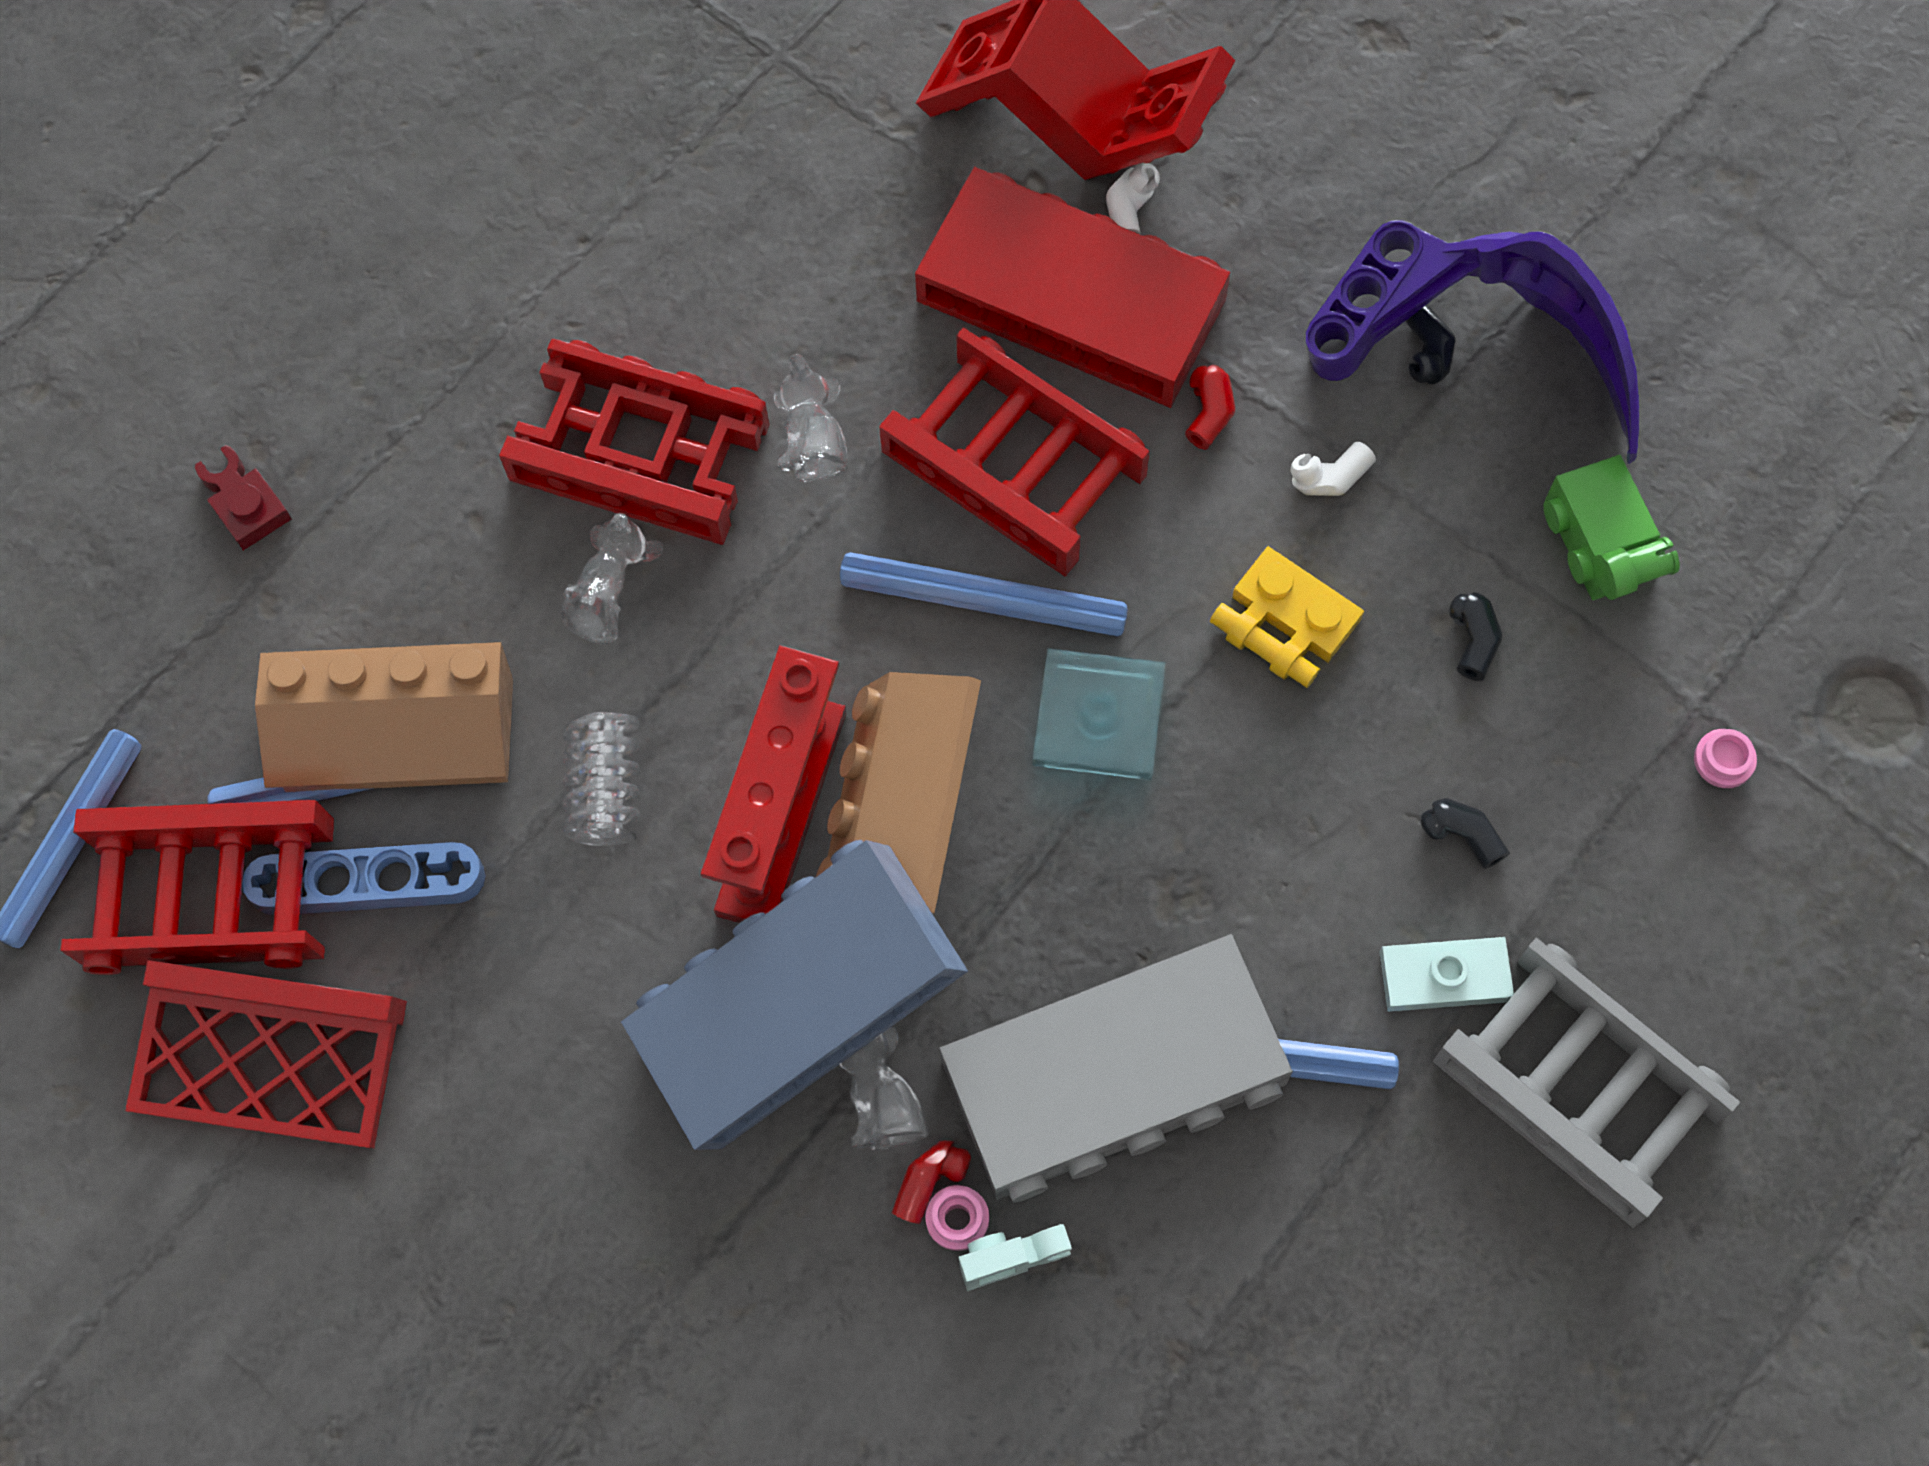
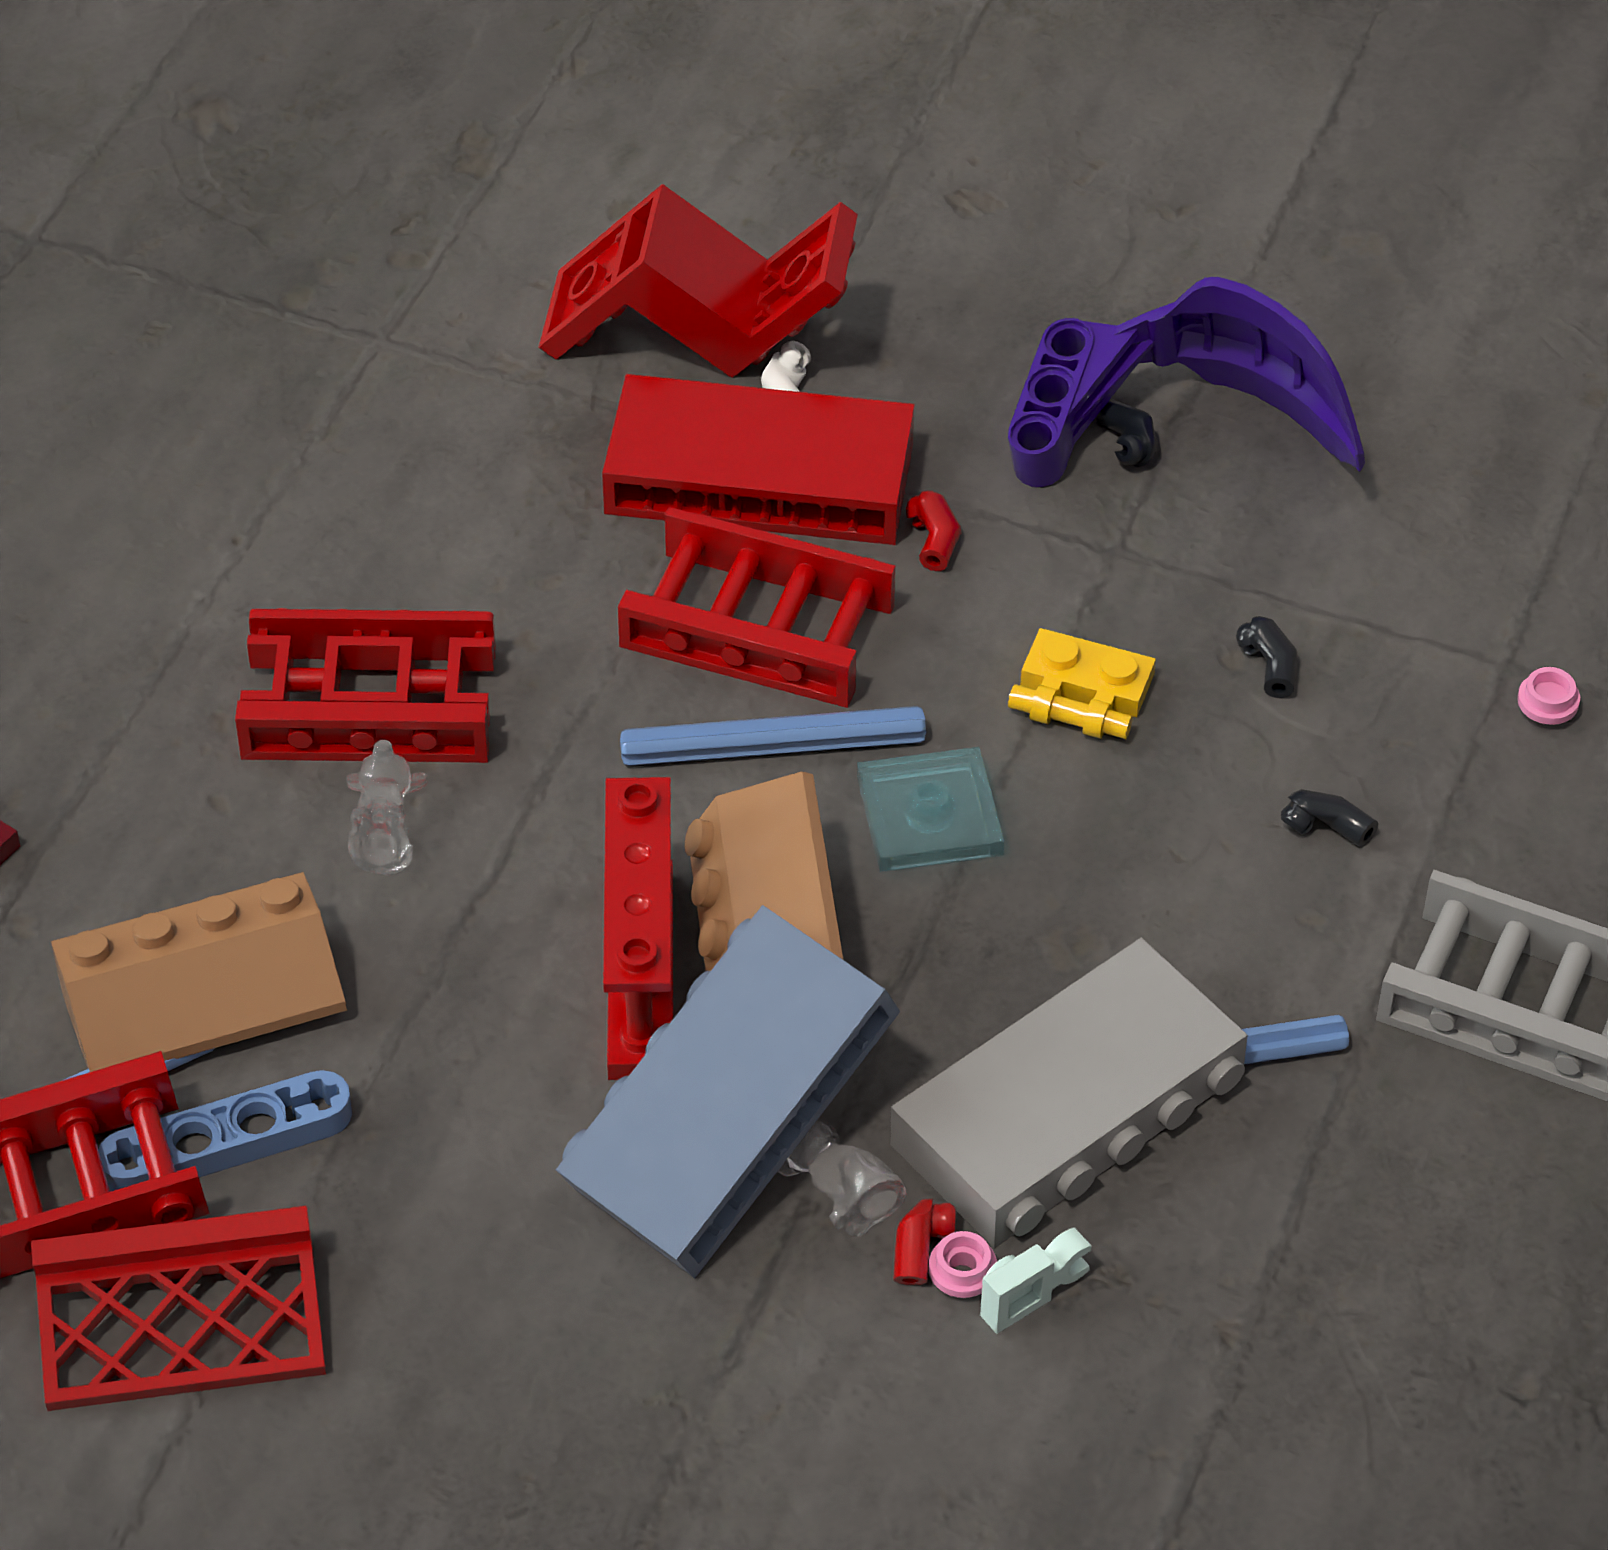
camera: 20 degrees left, 20 degrees down
(597, 778) = (448, 977): clear piece -> none
(813, 434) = (553, 638): clear animal -> none
(1331, 479) = (1062, 565): white arm -> none
(1446, 974) = (1358, 939): light aqua plate -> none
(1607, 530) = (1361, 536): bright green hinge -> none

